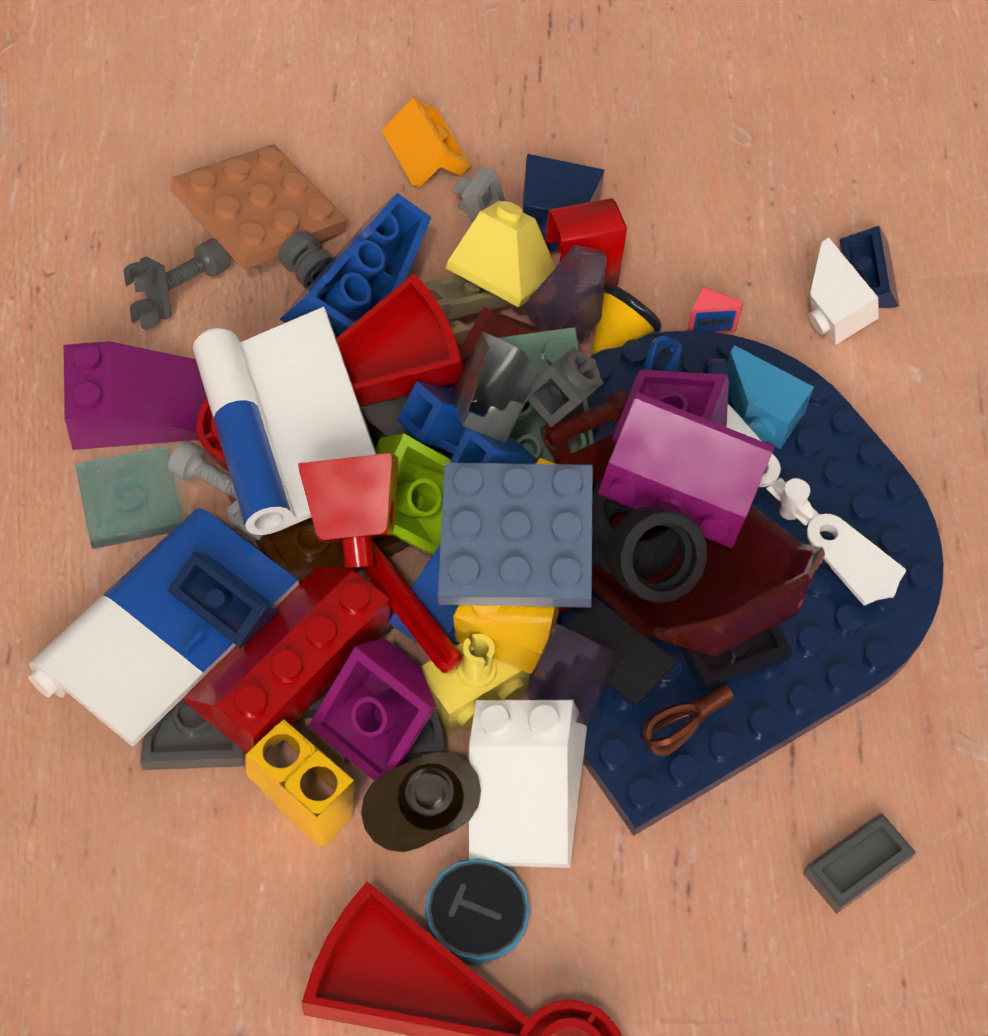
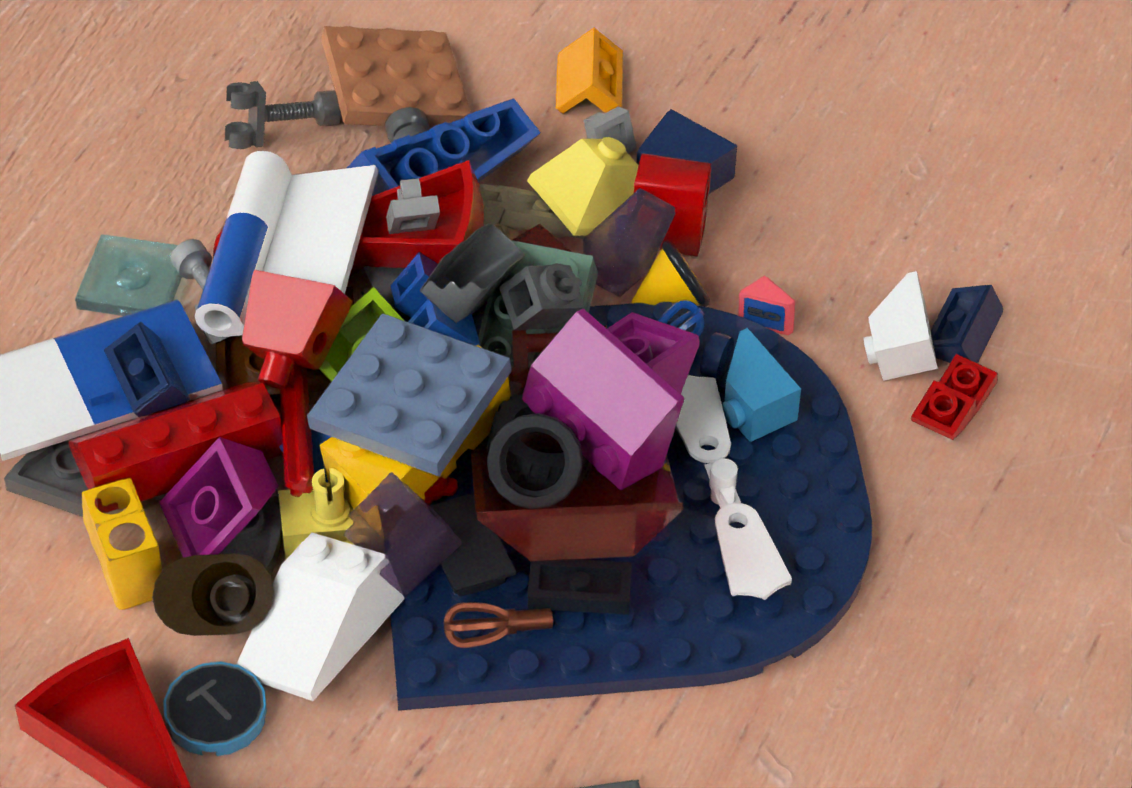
camera: 30 degrees right, 10 degrees down
(129, 395) = (170, 191): magenta slope -> none
(389, 339) = (412, 210): none -> light grey tile
(906, 339) = (955, 398): none -> red slope

